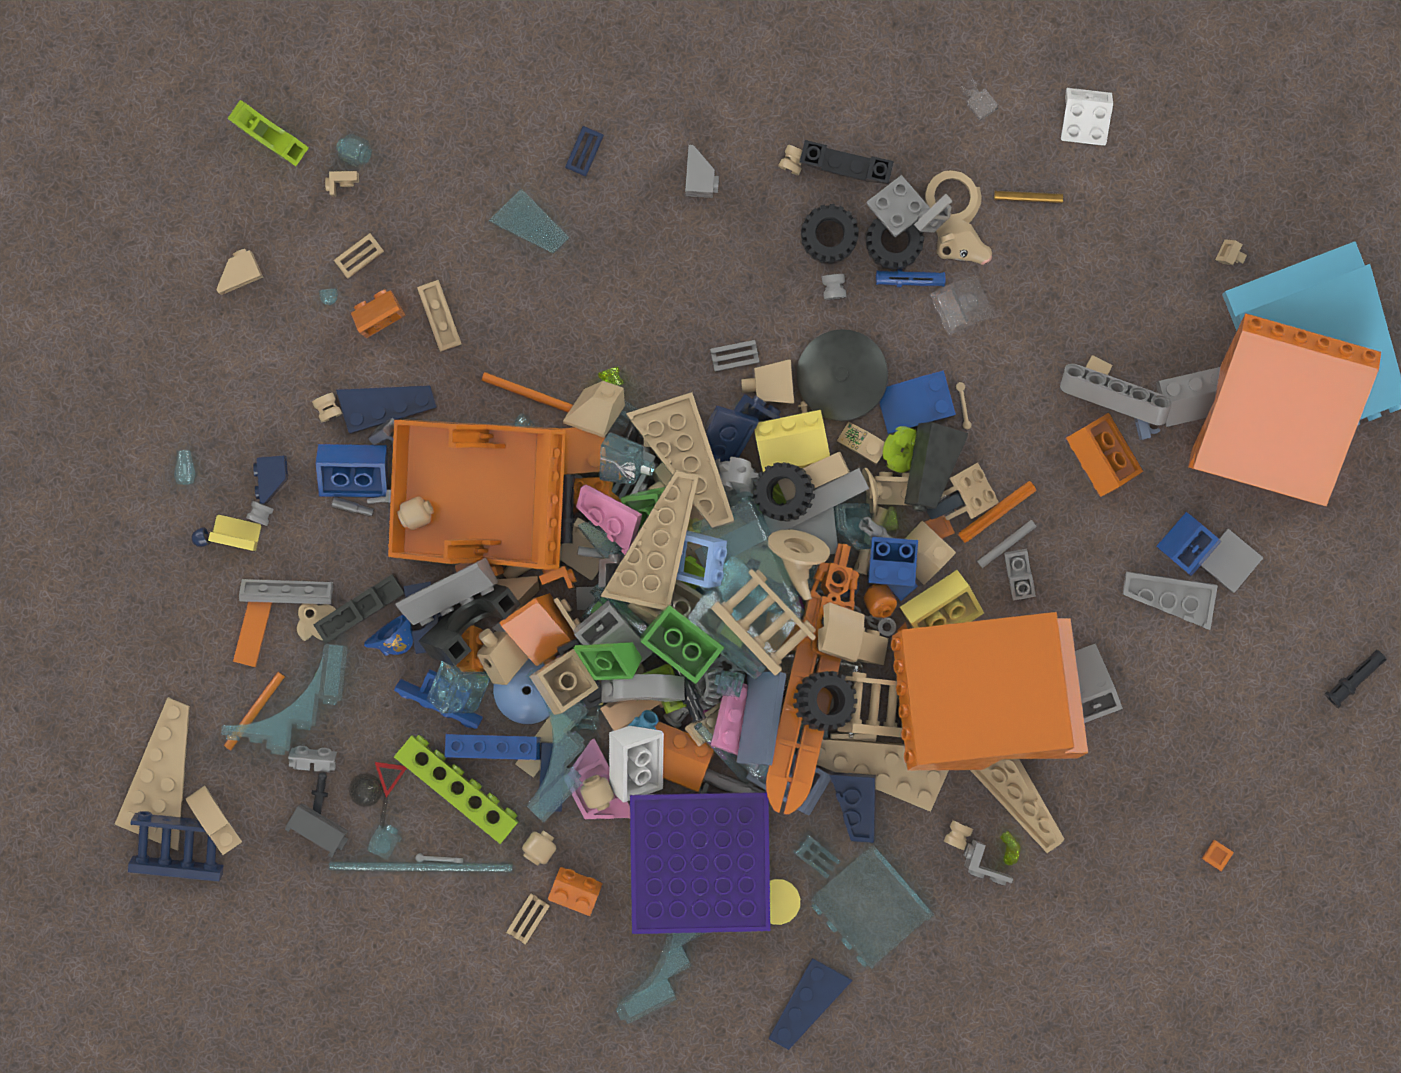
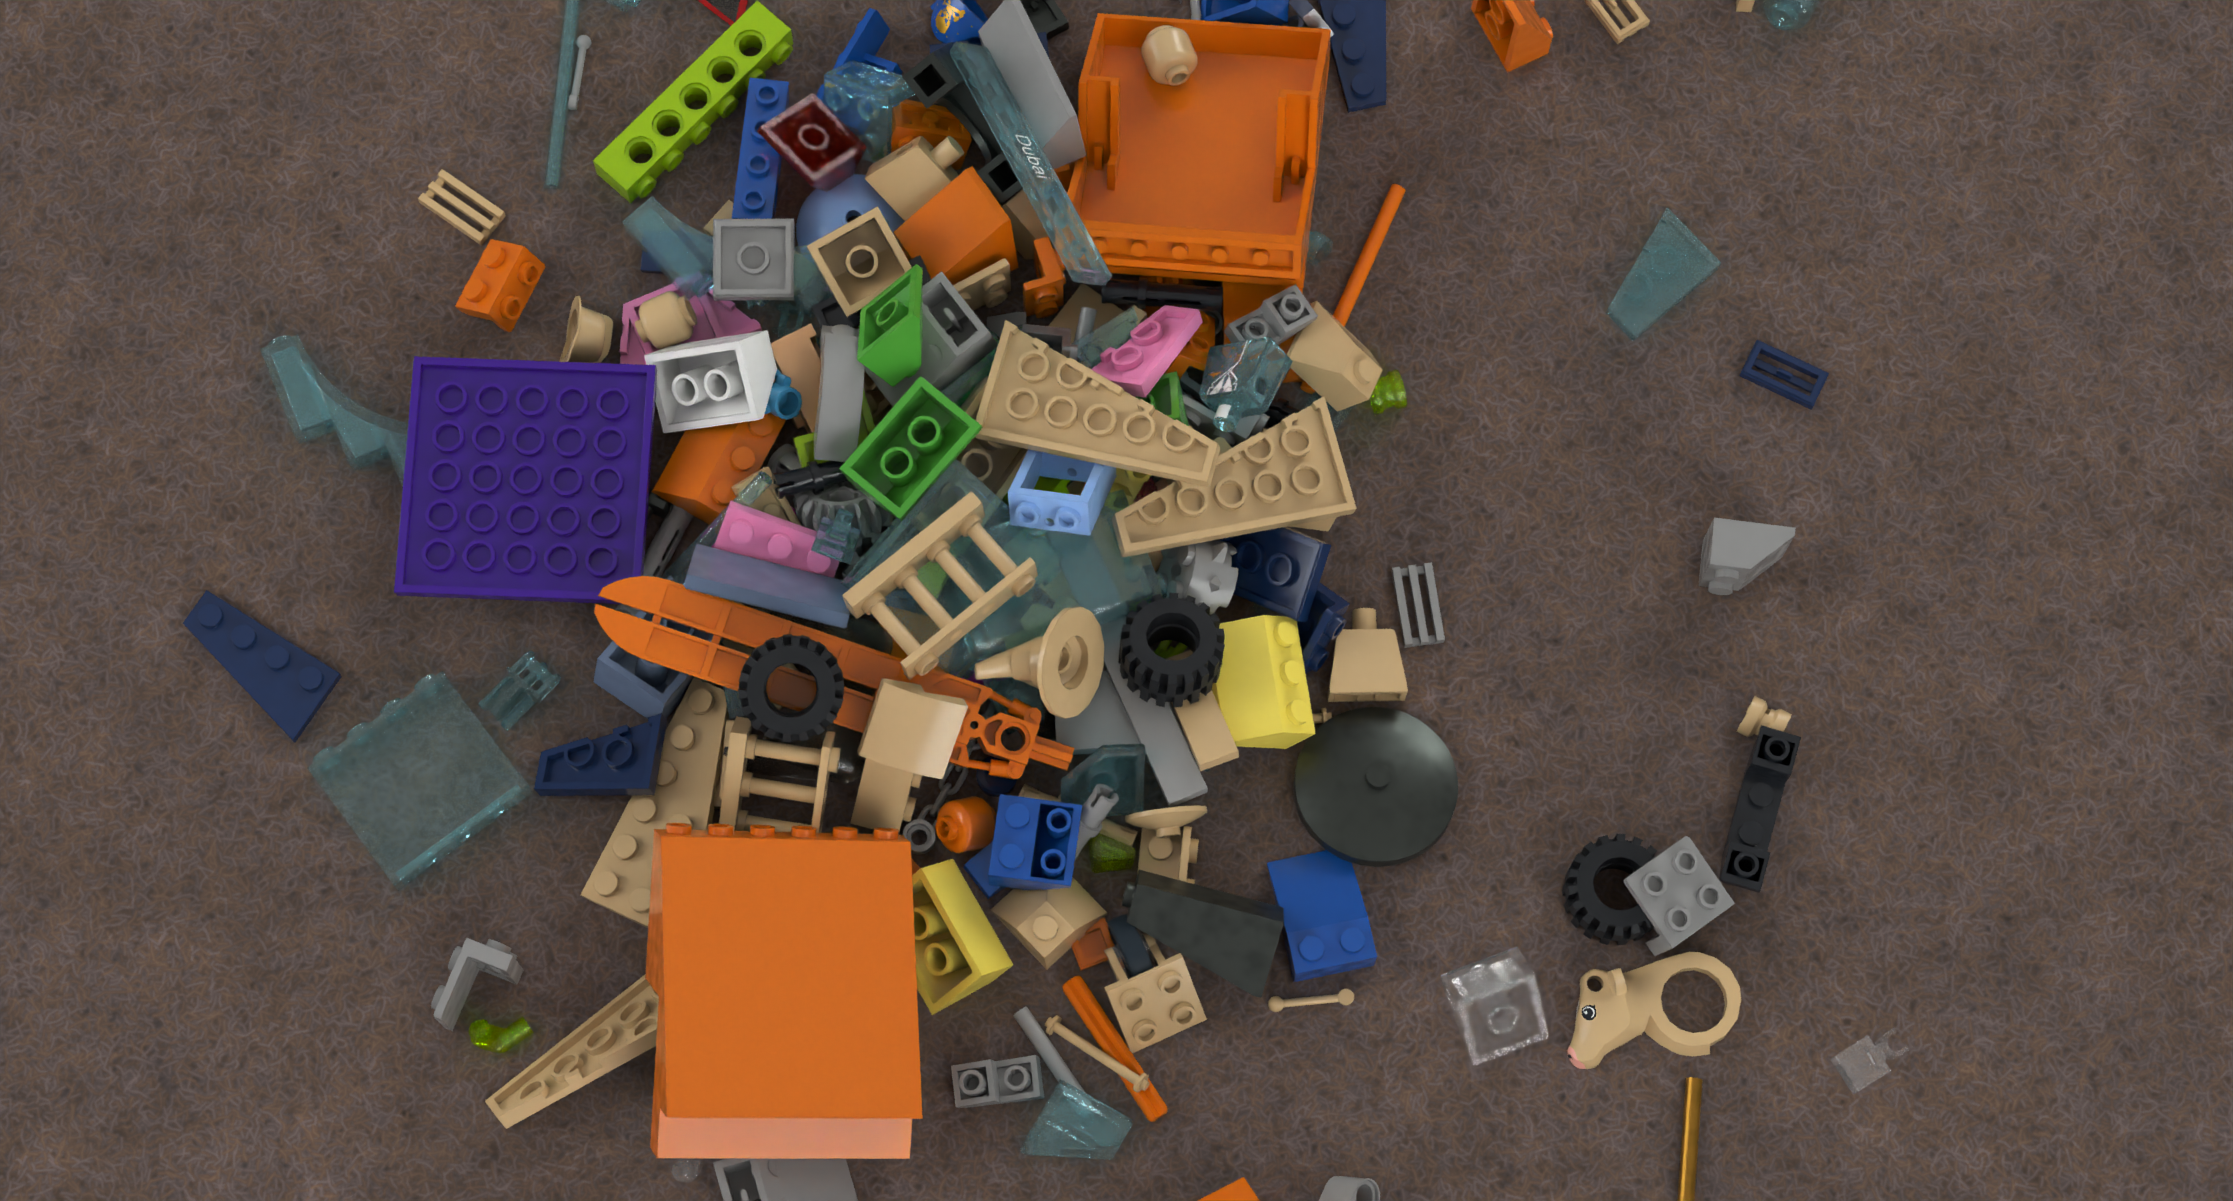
camera: 85 degrees right, 15 degrees down
(439, 315) = (1505, 123): tan tile -> none
(485, 716) = (815, 143): none -> clear red slope
(505, 588) = (1030, 164): none -> clear light blue tile
(539, 847) = (580, 227): tan head -> none
(562, 744) = (753, 259): none -> light grey tile
(582, 446) = (1276, 318): none -> light grey slope
(608, 838) = (587, 335): none -> tan piece
(783, 901) = (446, 626): light yellow tile -> none
(821, 252) = (1621, 807): black tyre -> none
(834, 286) = (1535, 780): light grey wheel -> none
(862, 442) = (1250, 815): tan slope -> none
(882, 277) = (1547, 869): blue pin -> none
(898, 460) = (1243, 858): lime plate -> none
(936, 216) = (1657, 953): light grey wing -> none
(958, 835) = (532, 940): tan wheel -> none
(1018, 496) = (1140, 1082): none -> tan axle
(1042, 530) = (1076, 1127): none -> clear light blue wing

